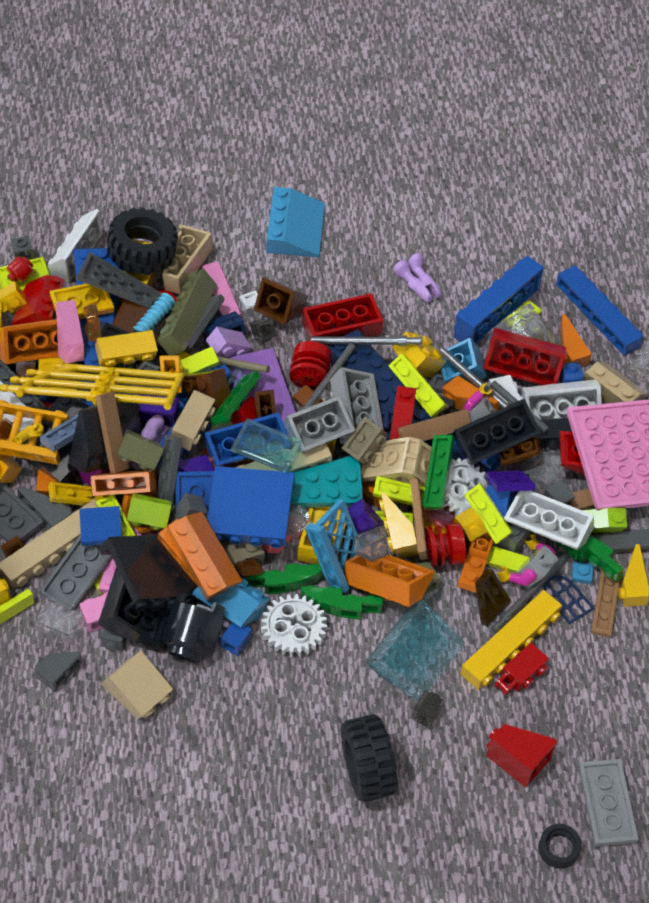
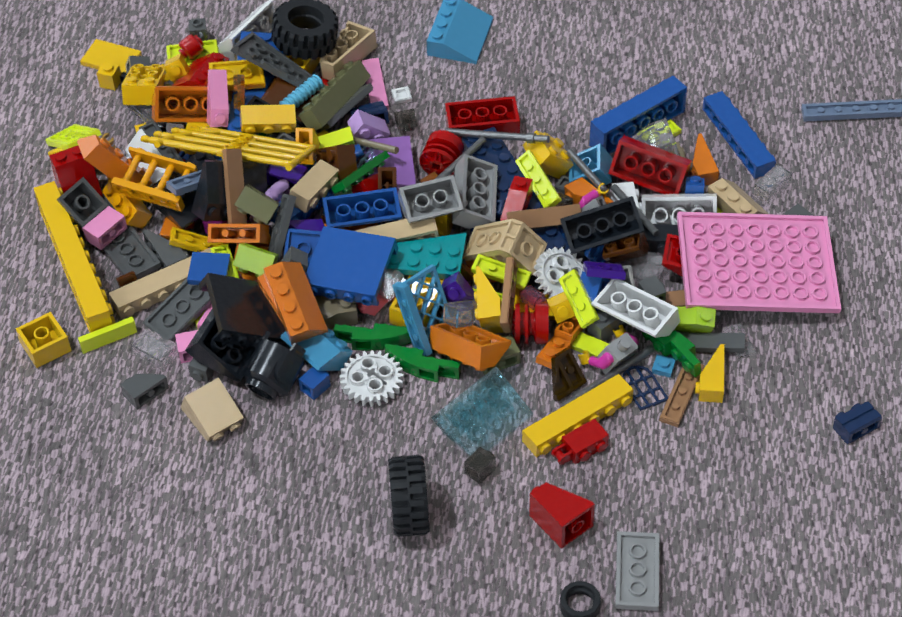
camera: 15 degrees right, 5 degrees down
(30, 431) = (160, 177): yellow arm -> none
(249, 567) = (339, 321): reddish brown tile -> none
(267, 446) = (375, 212): clear light blue slope -> none
(279, 301) = (424, 94): reddish brown slope -> none
(365, 441) = (472, 221): dark tan bracket -> none
(424, 284) = (567, 96): lavender piece -> none
(438, 472) = (536, 254): green plate -> none

